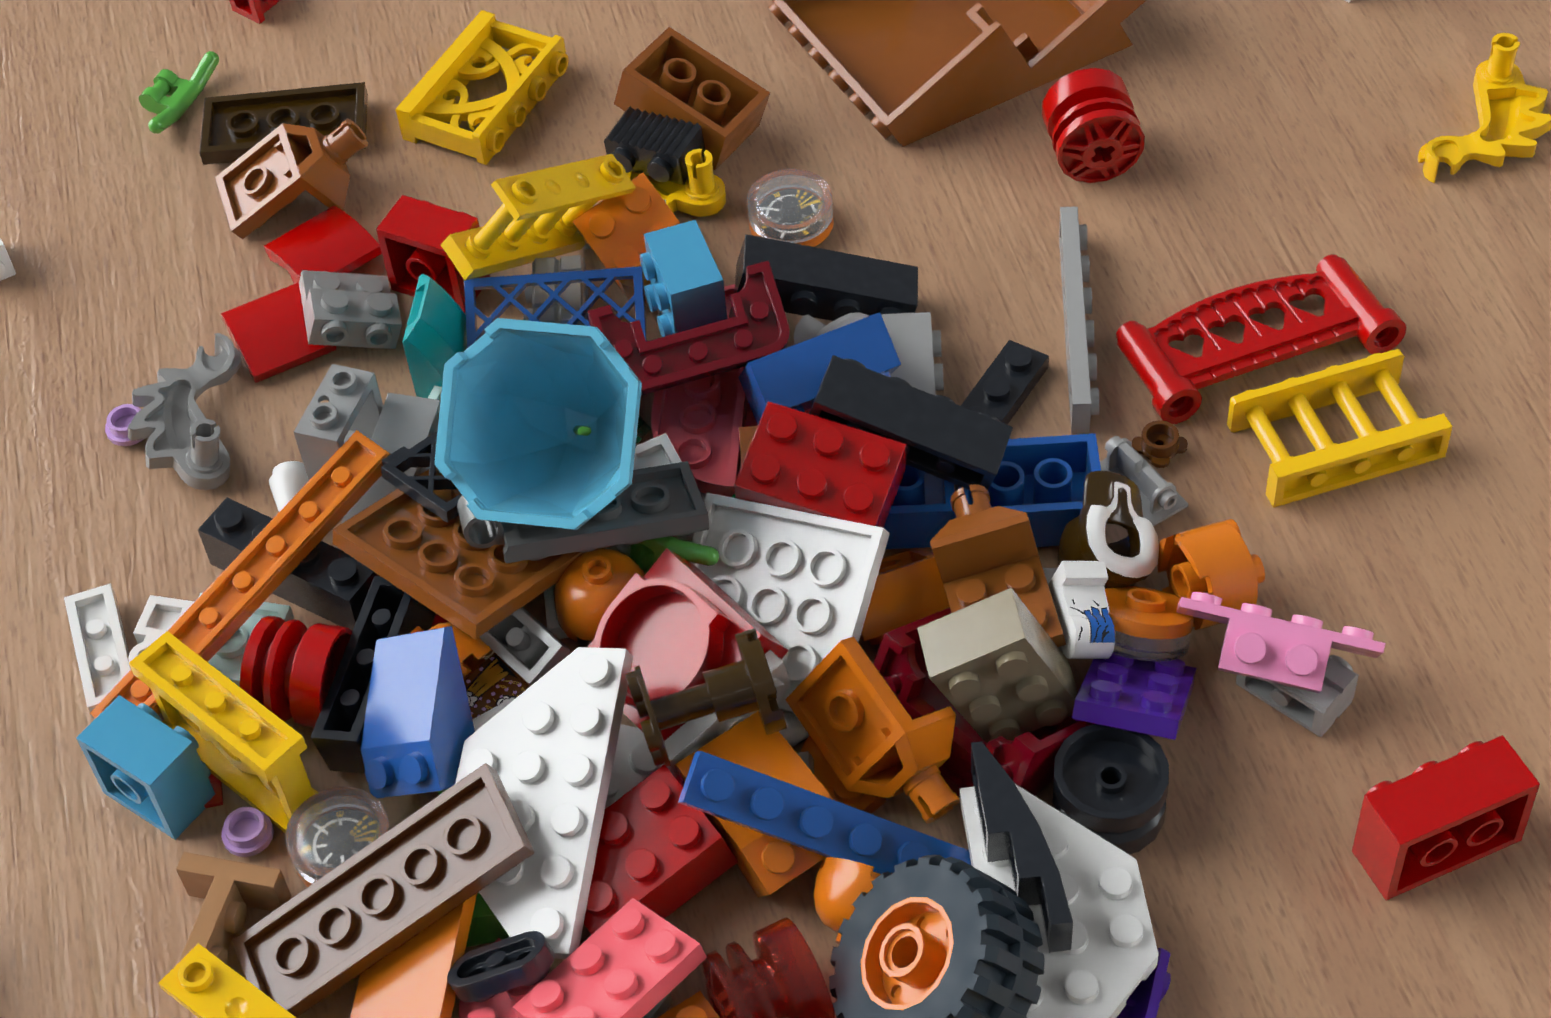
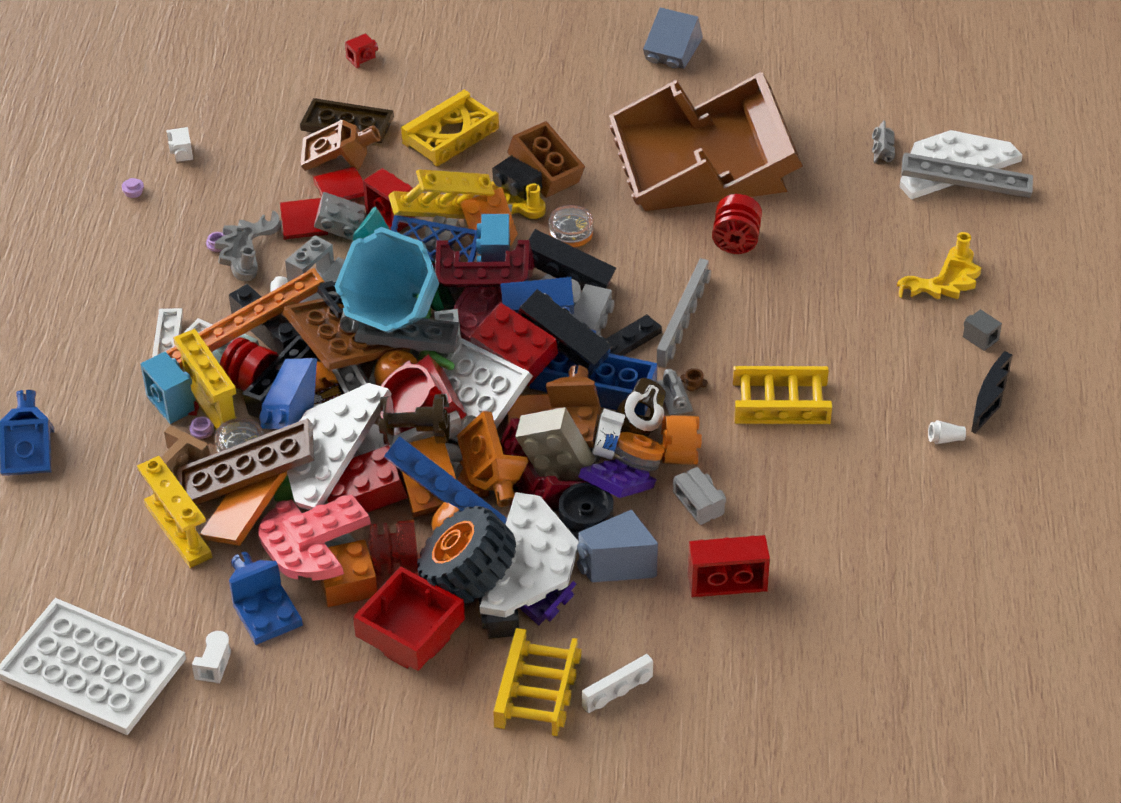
camera: 15 degrees right, 5 degrees down
(182, 93) = (303, 94): bright green piece -> none
(501, 967) = (282, 504): black plate -> none
(1015, 835) = (524, 518): black slope -> none
(1176, 376) = (716, 350): red piece -> none
(1218, 849) = (617, 550): none -> sand blue slope
(1277, 649) = (687, 475): bright pink bracket -> none

